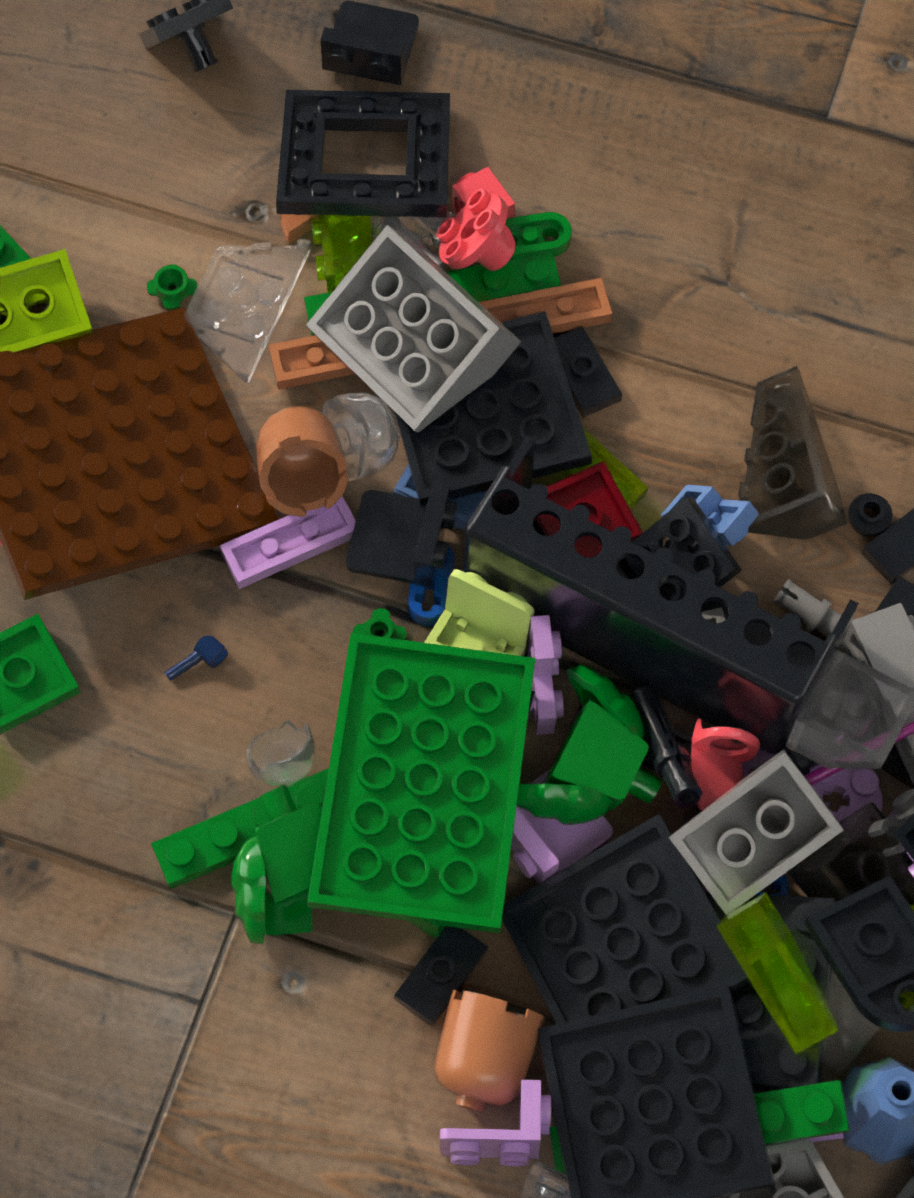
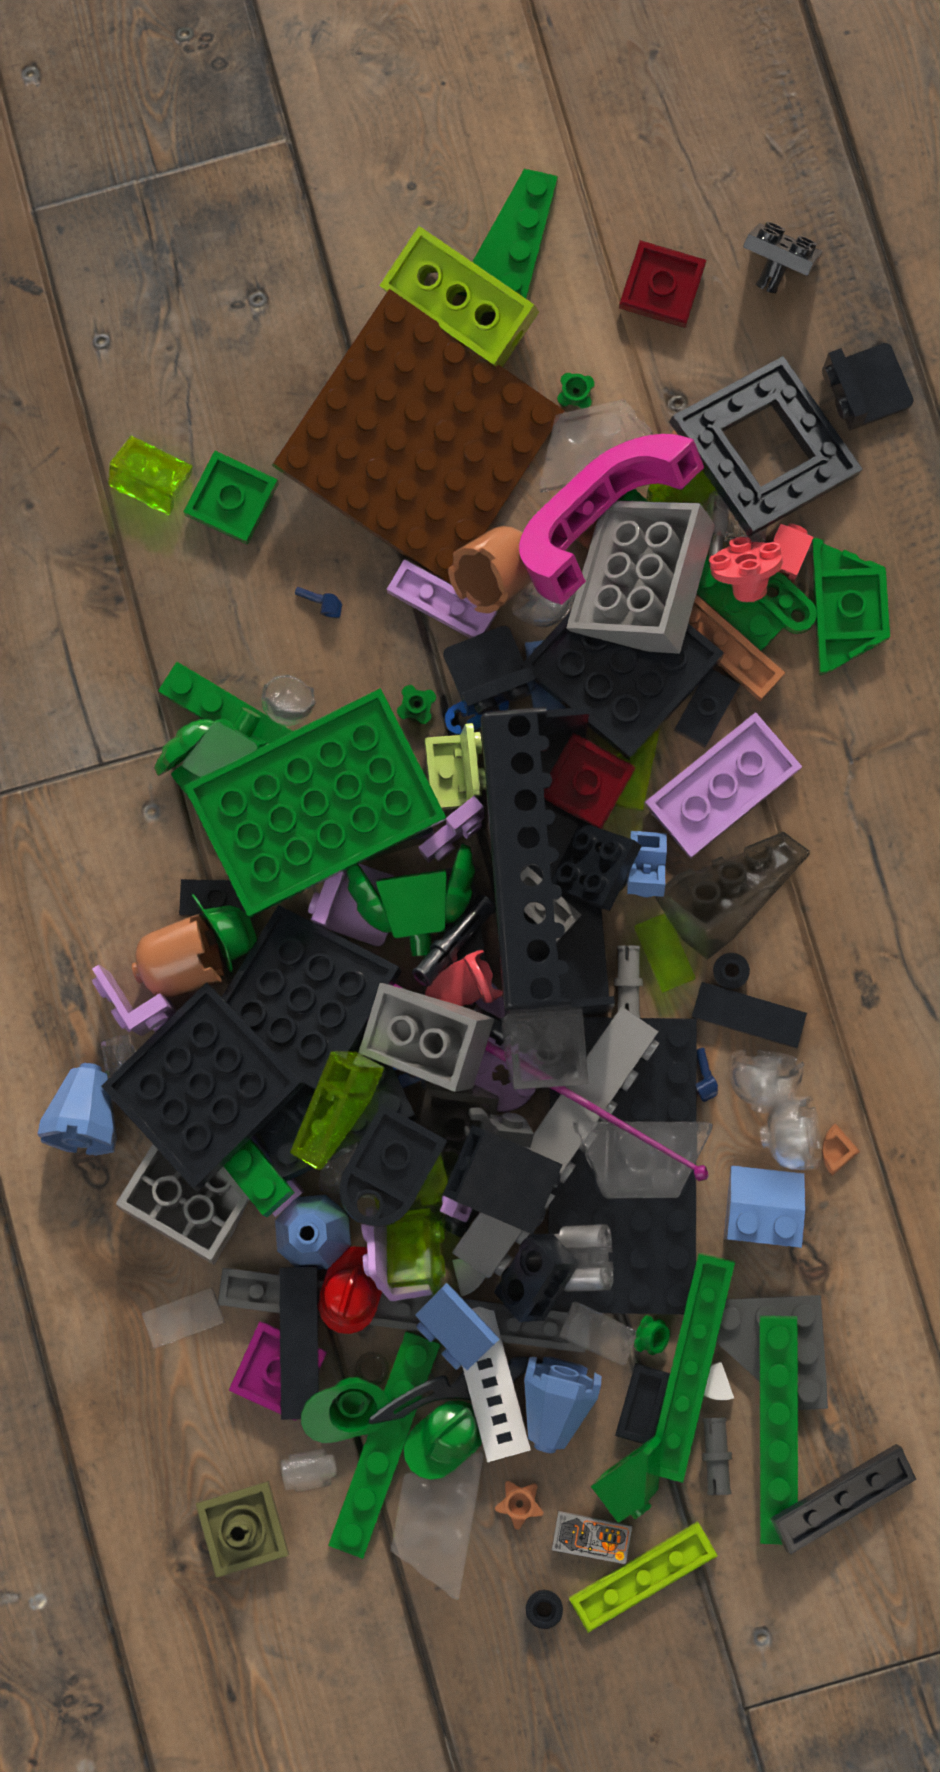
camera: 65 degrees right, 15 degrees up
(129, 147) = (662, 284): none -> dark red plate
(304, 248) = (635, 463): none -> dark pink arch
(490, 972) = (231, 931): none -> green piece
(576, 183) = (849, 605): none -> green wing
(674, 404) = (723, 785): none -> lavender plate
(808, 565) = (664, 953): none -> clear neon green plate

